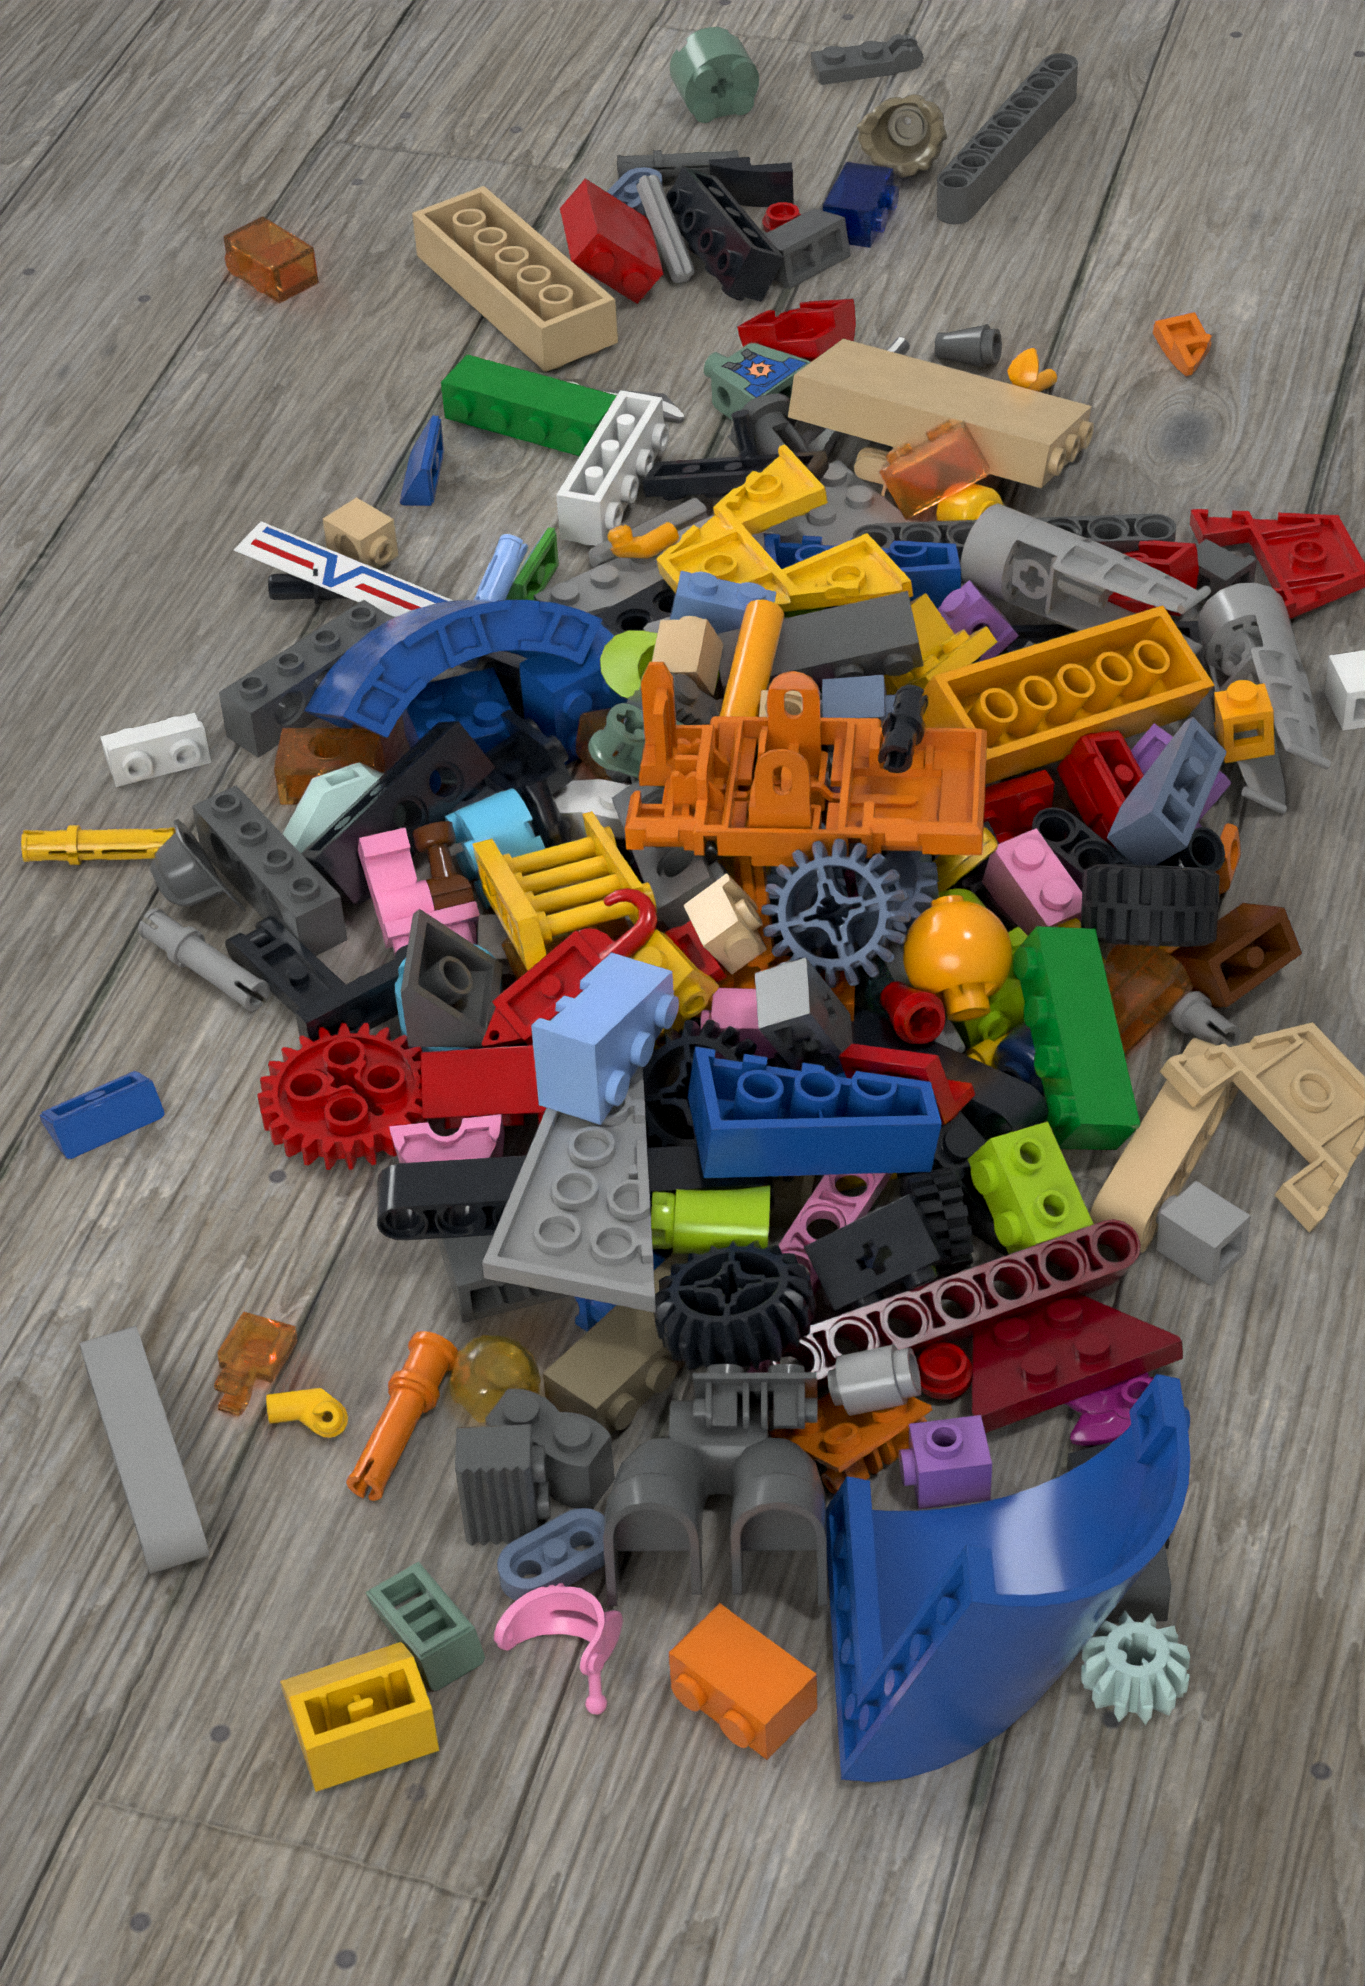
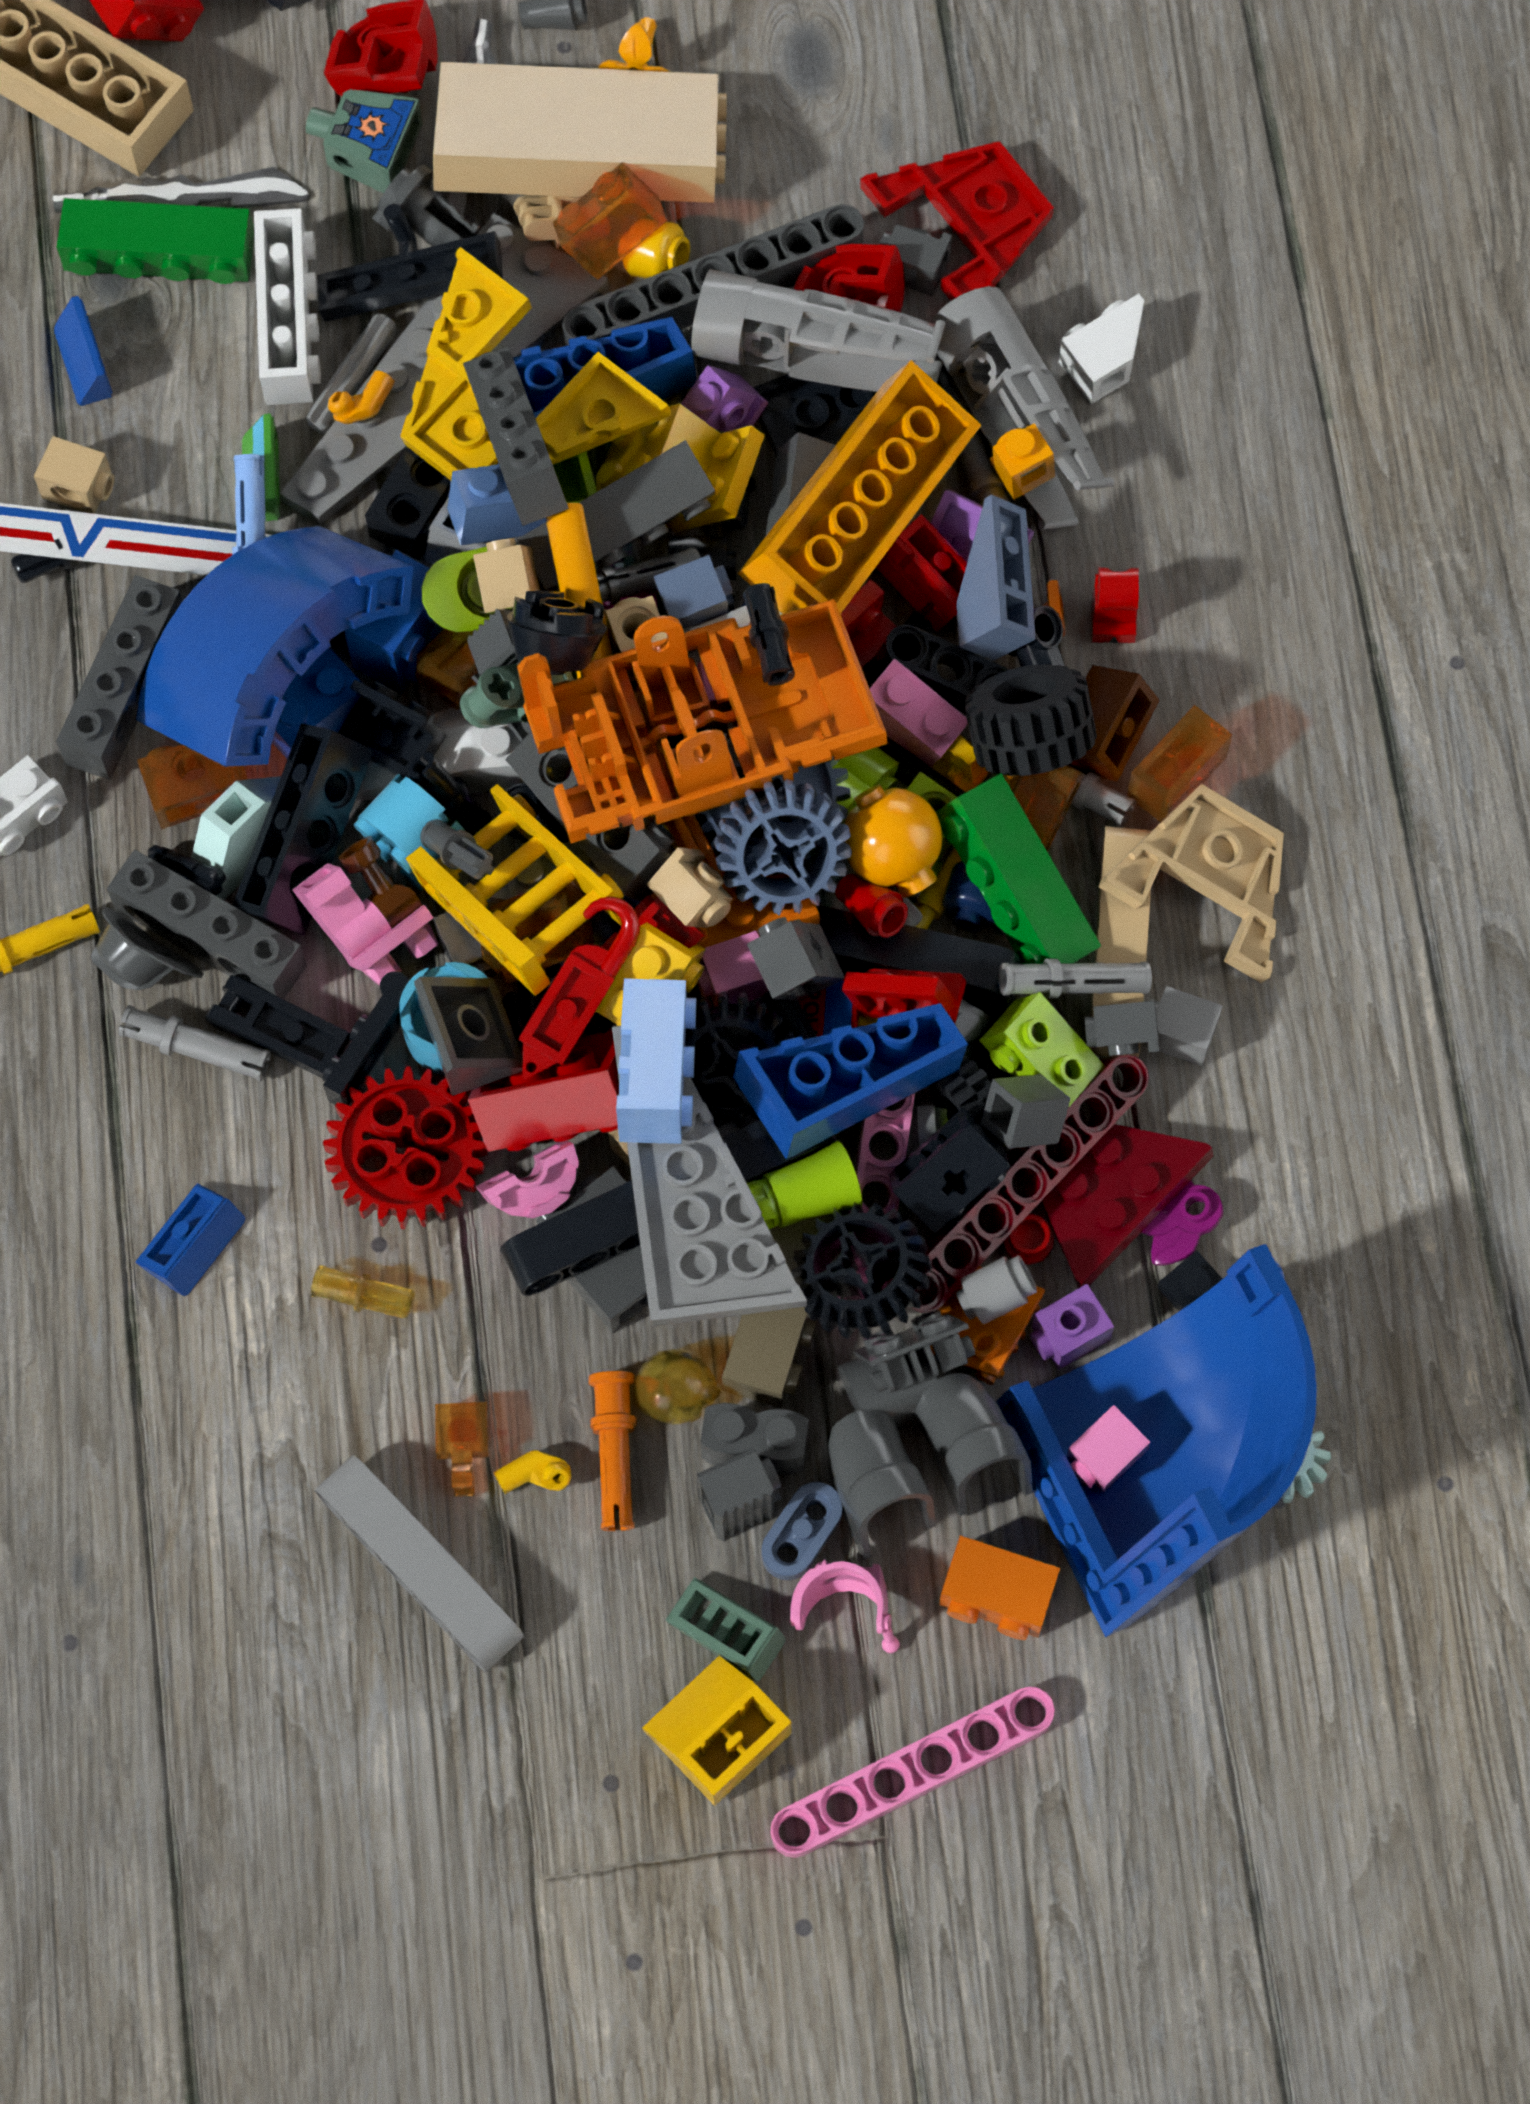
camera: 25 degrees left, 25 degrees up
(232, 1201) = (362, 1292): none -> clear yellow axle
(285, 823) = (189, 868): none -> black axle
(521, 841) = (456, 849): none -> dark grey axle
(552, 1849) = (909, 1765): none -> bright pink beam
(704, 681) = (556, 629): none -> black cone
(748, 547) = (515, 436): none -> dark grey brick
(915, 1571) = (1107, 1450): none -> bright pink brick
(982, 1218) = (1025, 1111): none -> dark grey brick
(1130, 1189) = (1123, 1027): none -> dark grey brick
(1159, 1154) = (1059, 978): none -> light grey pin
(1292, 865) = (1115, 606): none -> red leg
(1305, 993) = (1179, 763): none -> clear orange piece

